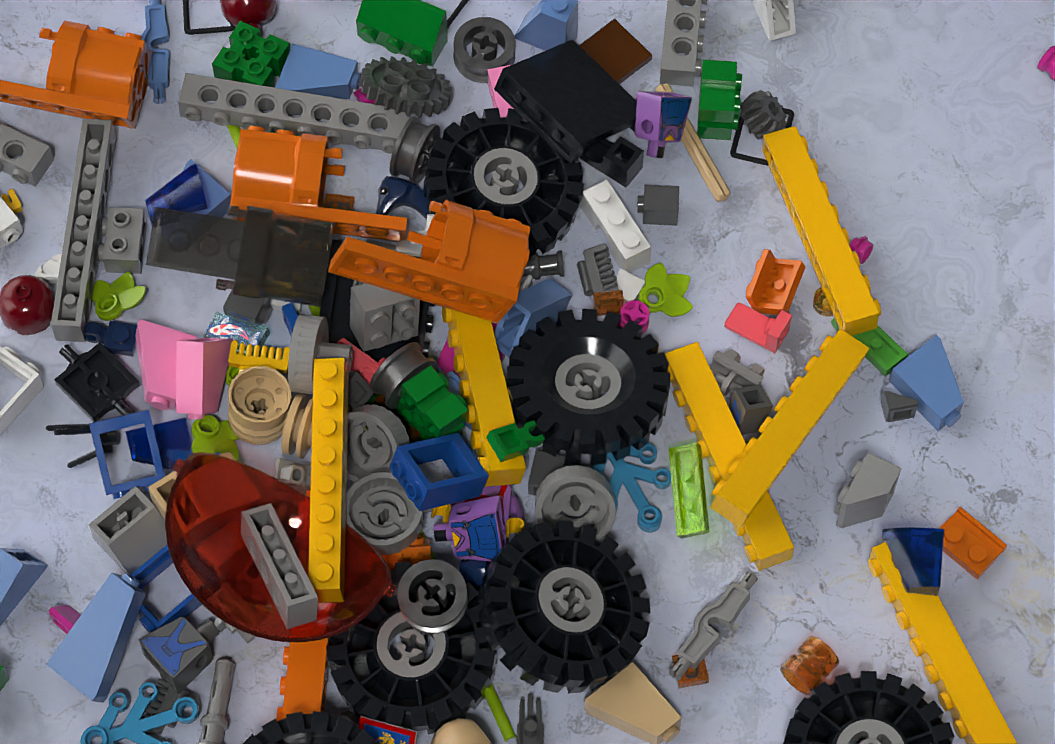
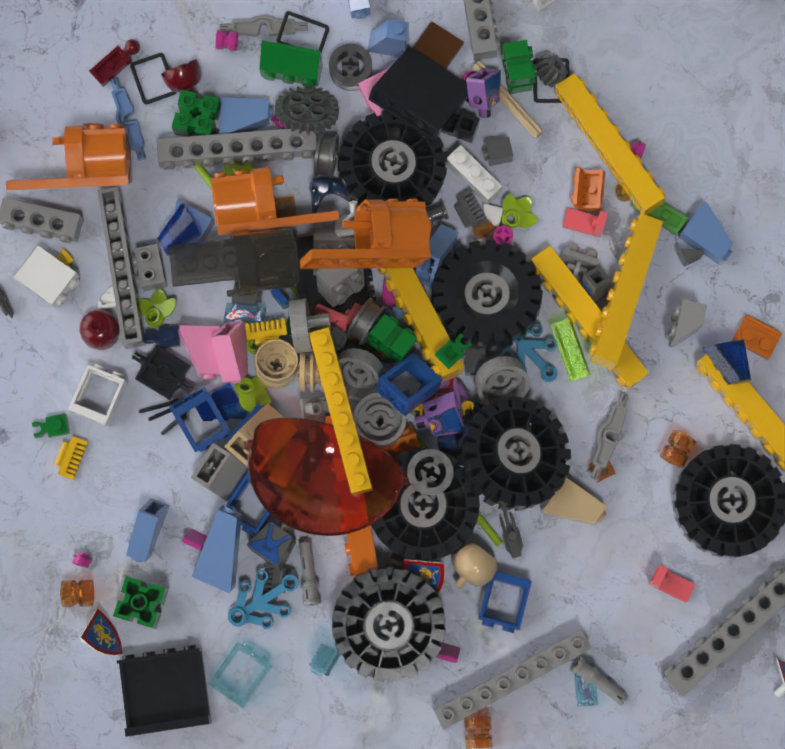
camera: 10 degrees left, 15 degrees up
(279, 566) = (327, 481): light grey brick -> none

